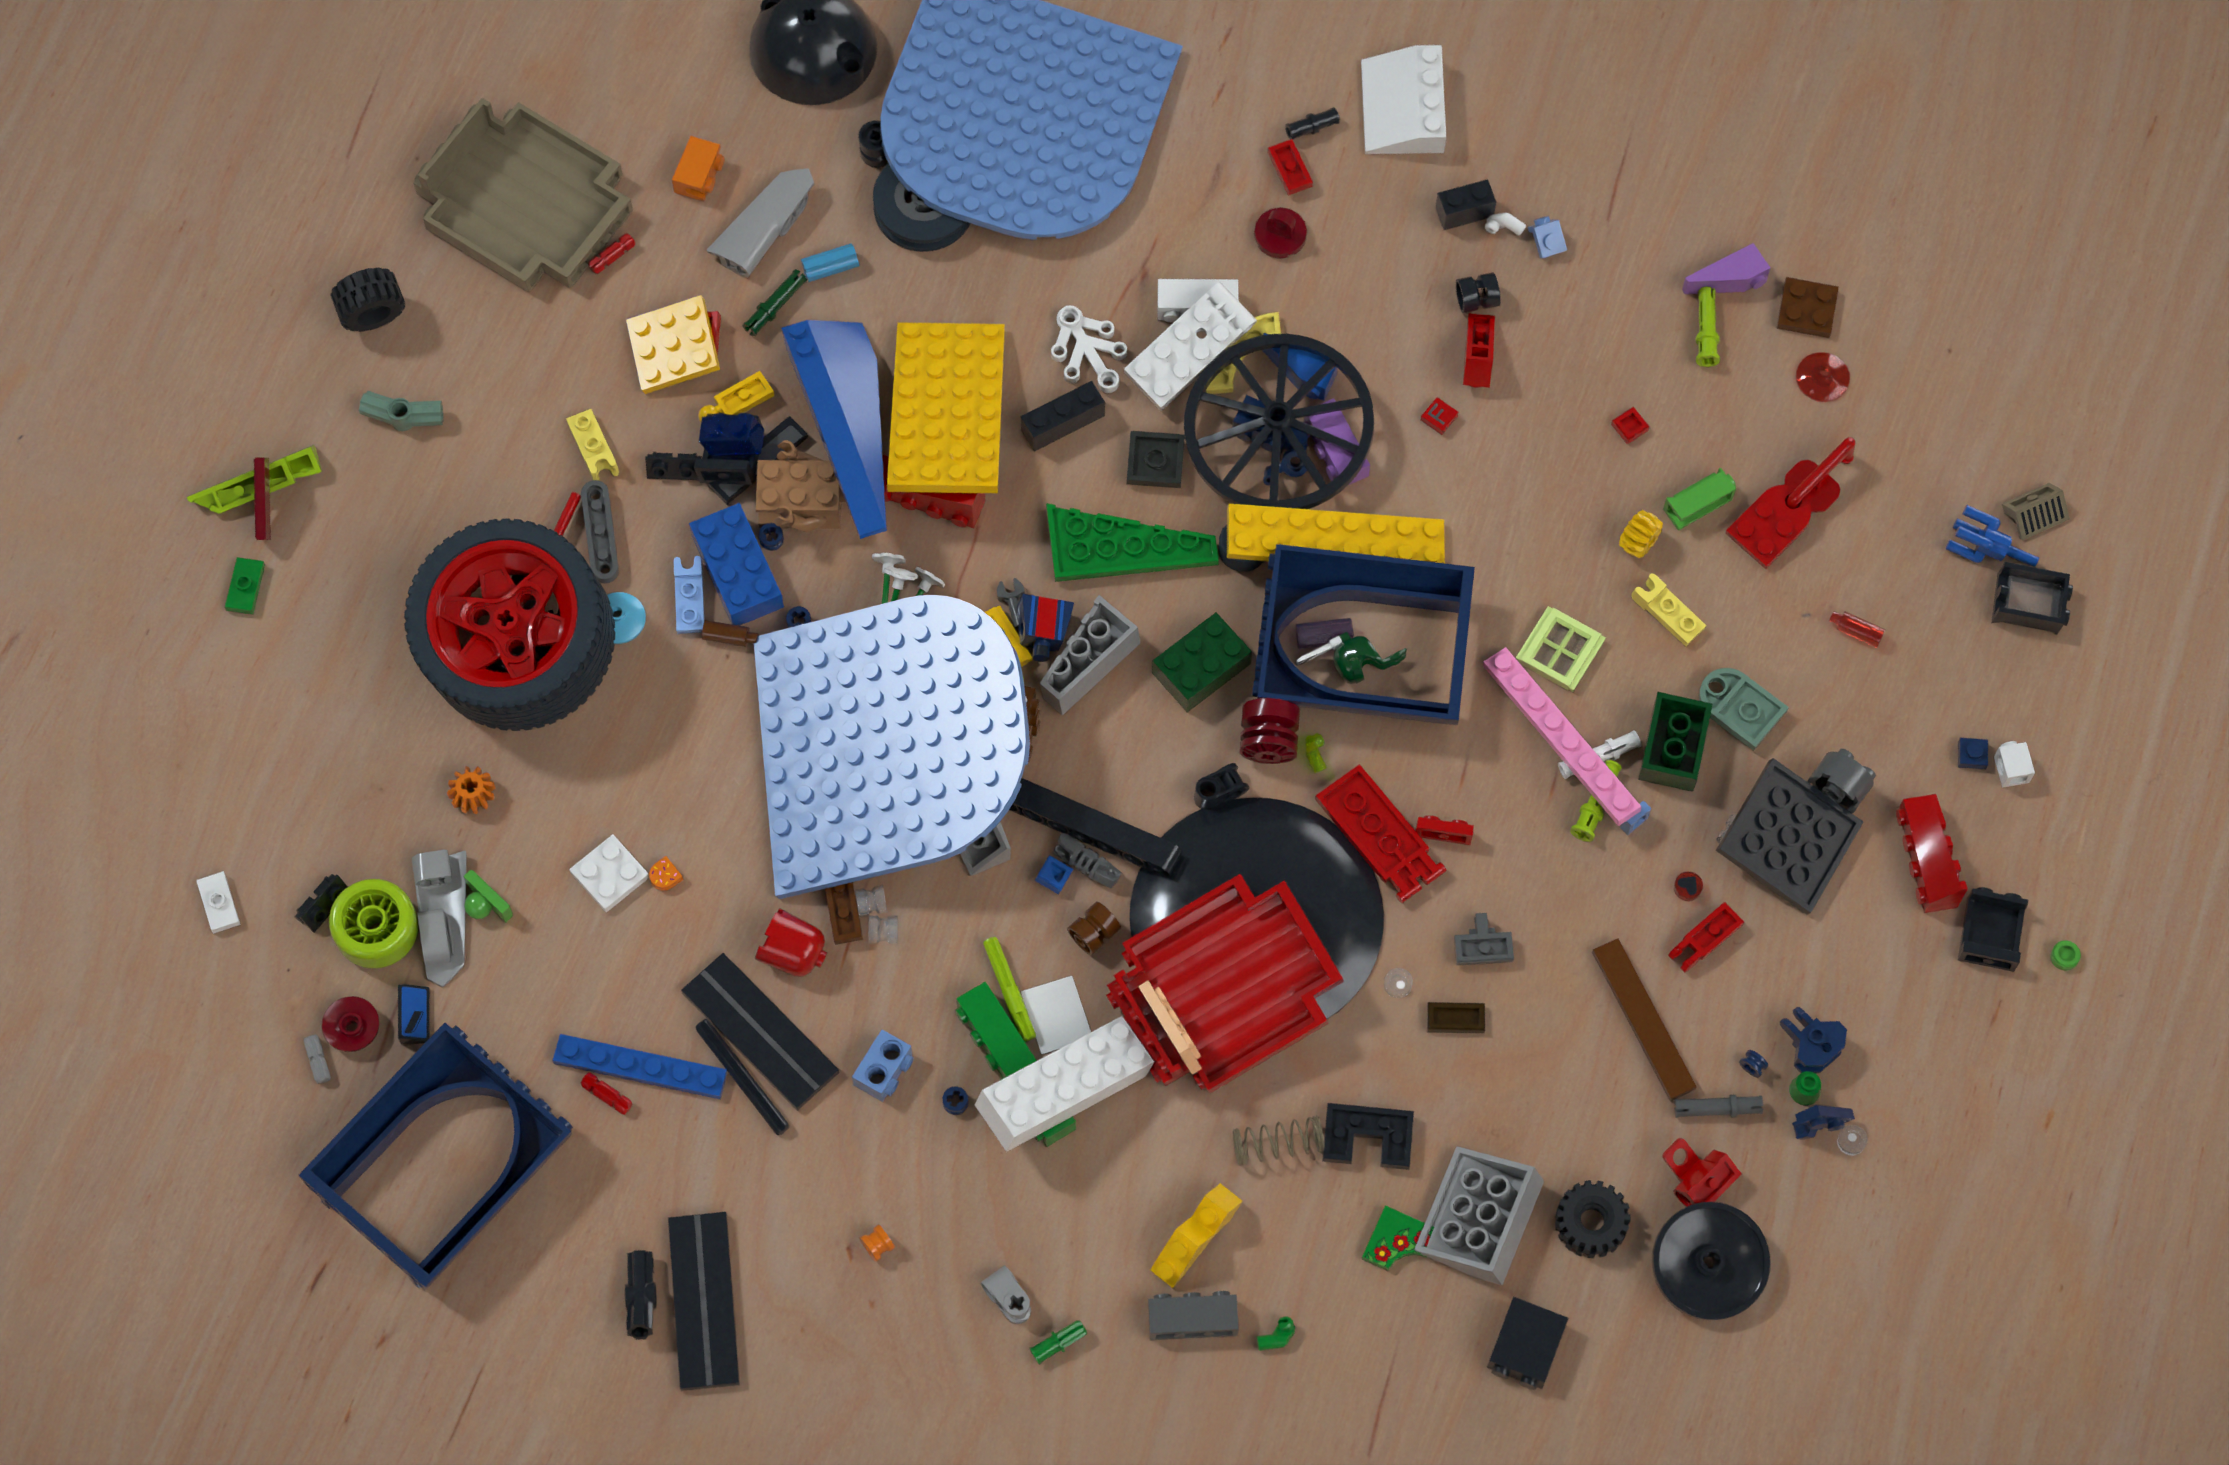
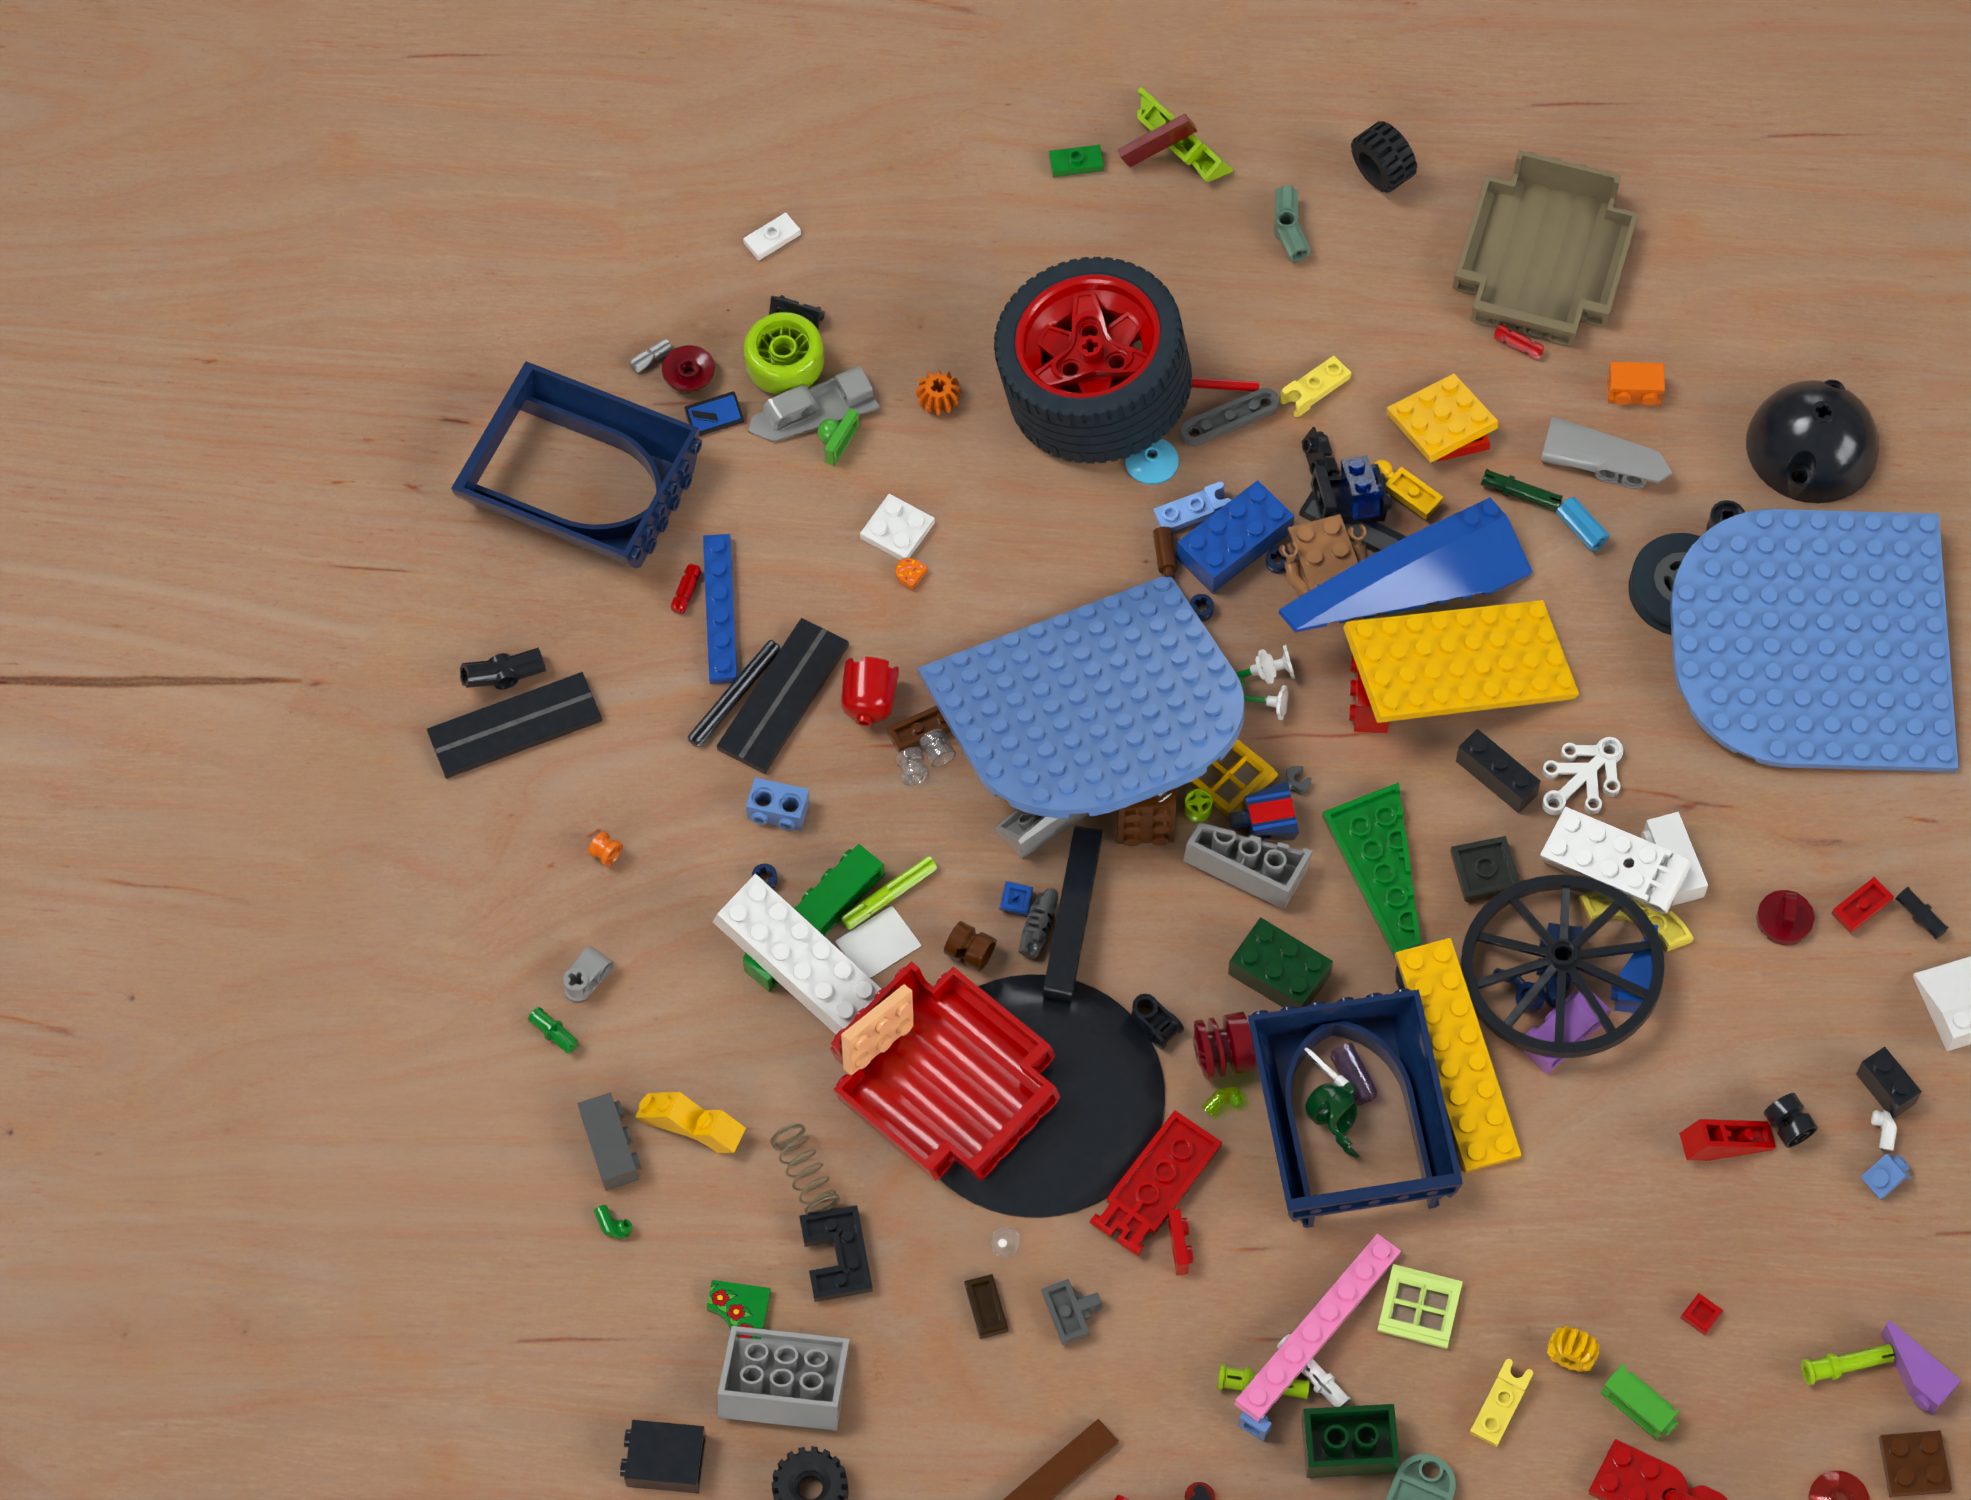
camera: 75 degrees right, 5 degrees down
(1439, 416) = (1638, 1122): red tile -> none

